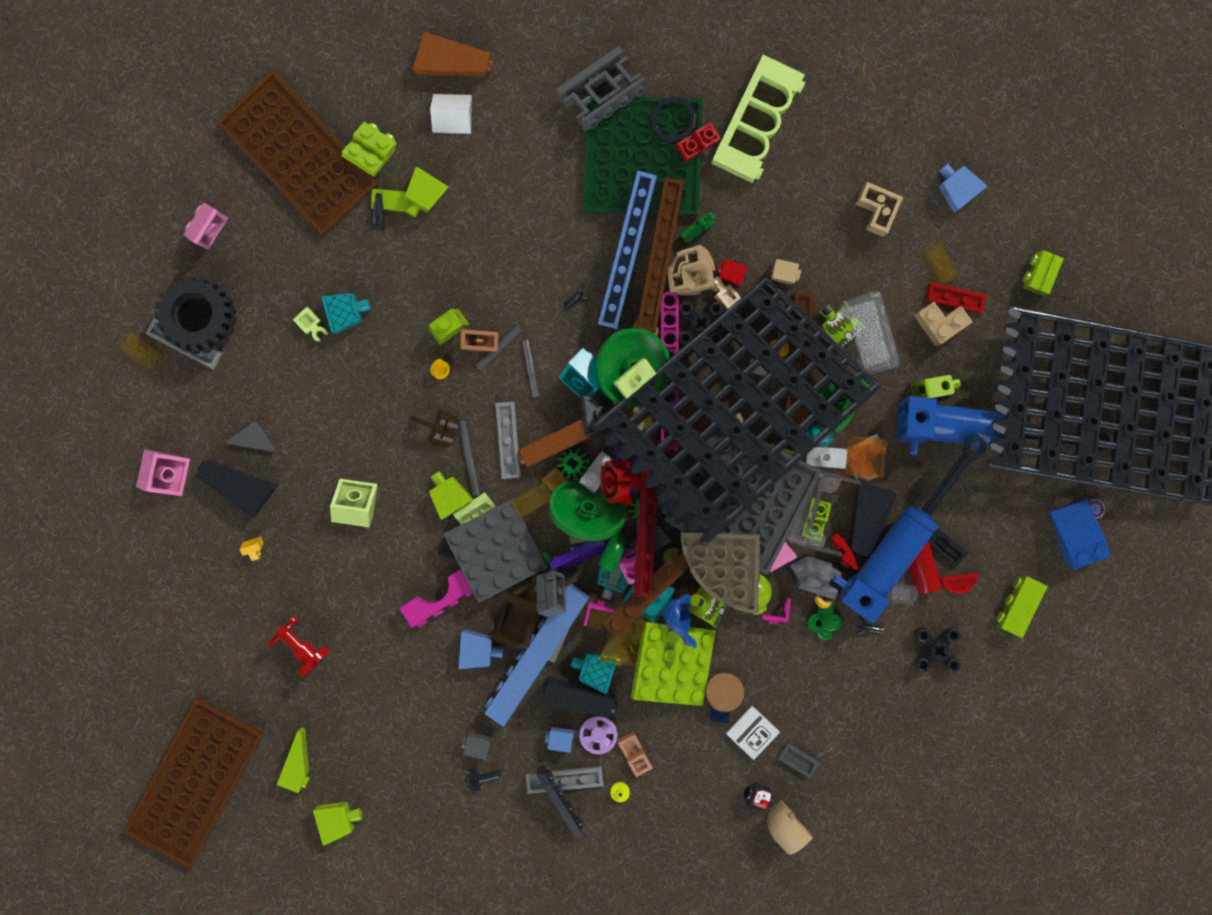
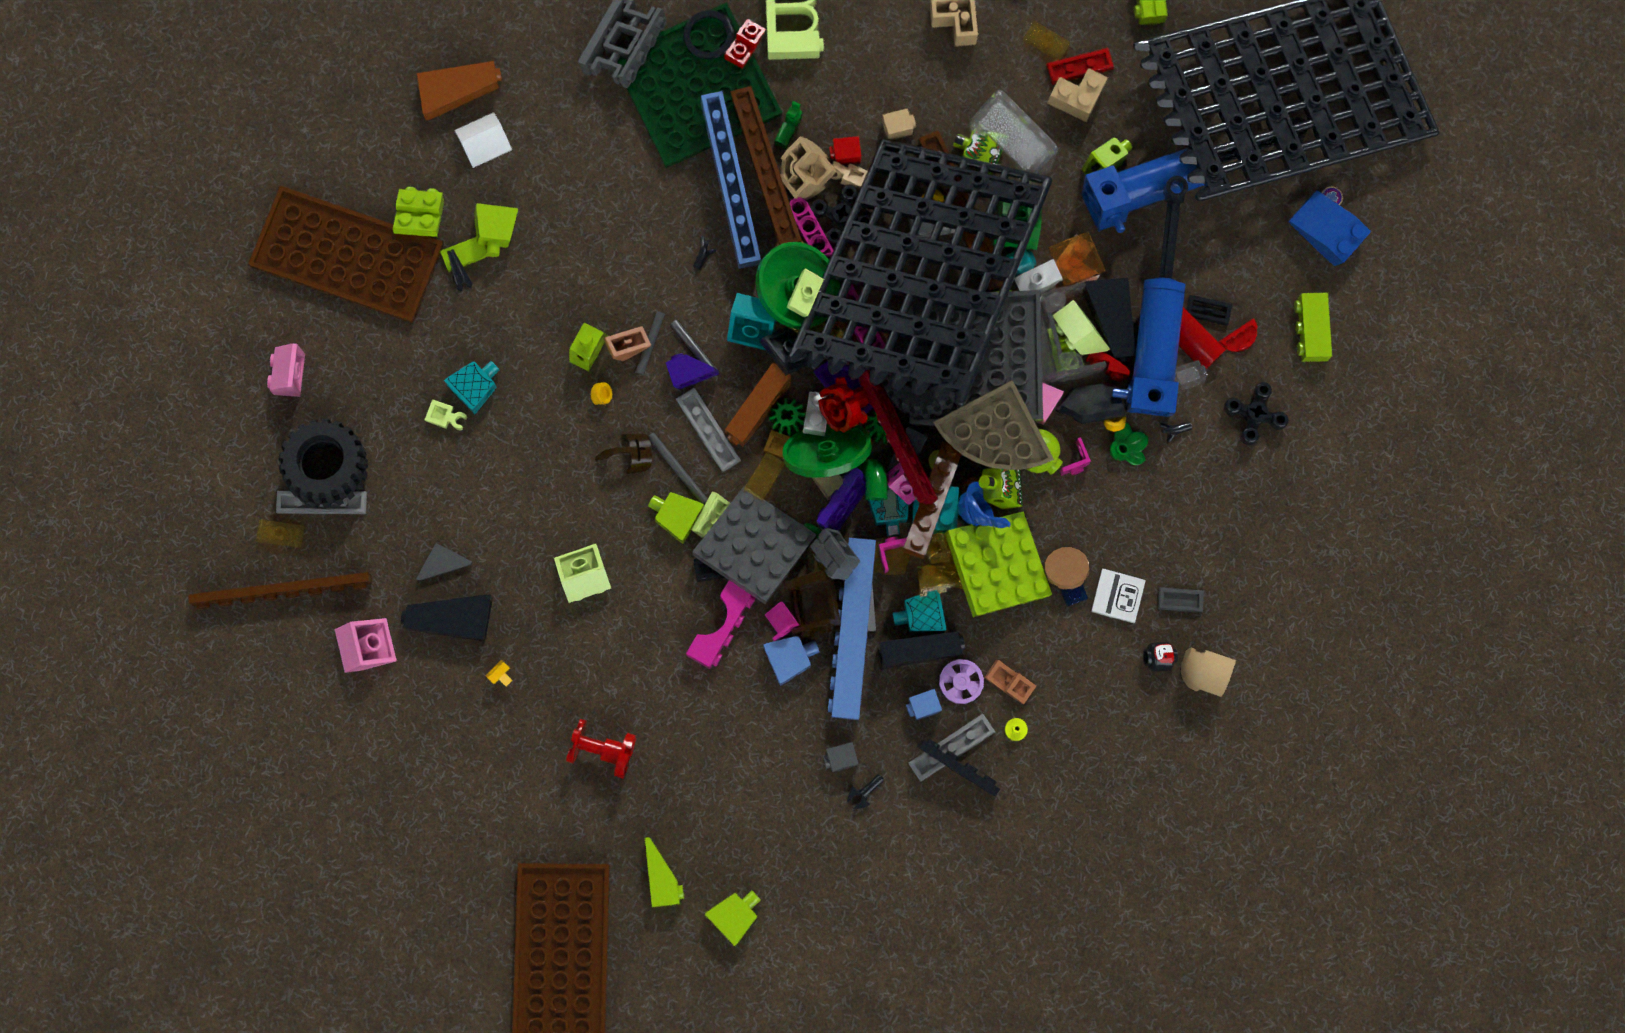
camera: 35 degrees left, 10 degrees down
(110, 395) = (271, 591): none -> reddish brown plate
(487, 619) = (781, 620): none -> dark pink bracket
(515, 386) = (688, 371): none -> dark purple slope
(835, 516) = (1079, 330): none -> yellowish green slope

